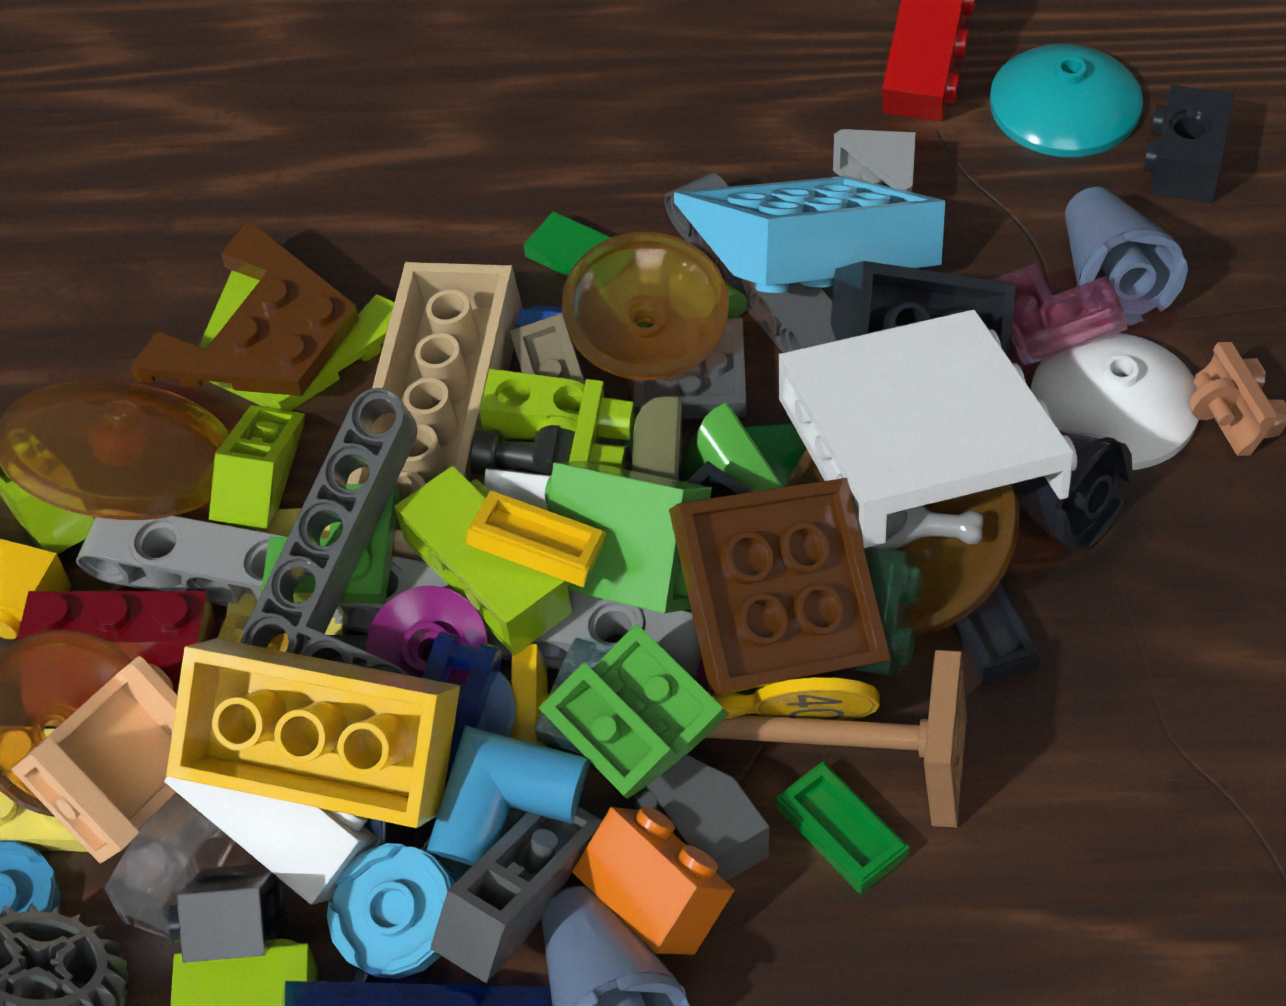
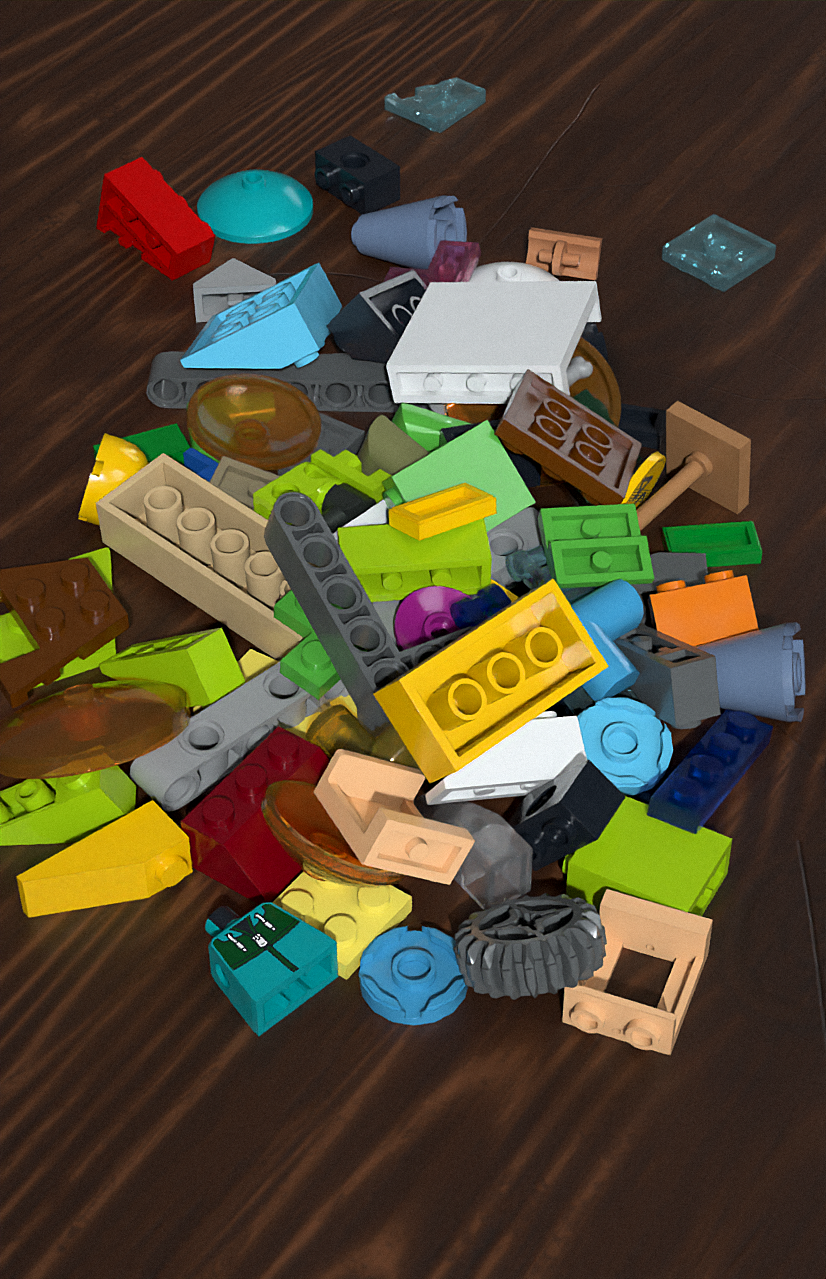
camera: 60 degrees left, 10 degrees down
(494, 238) = (114, 464): none -> yellow cylinder

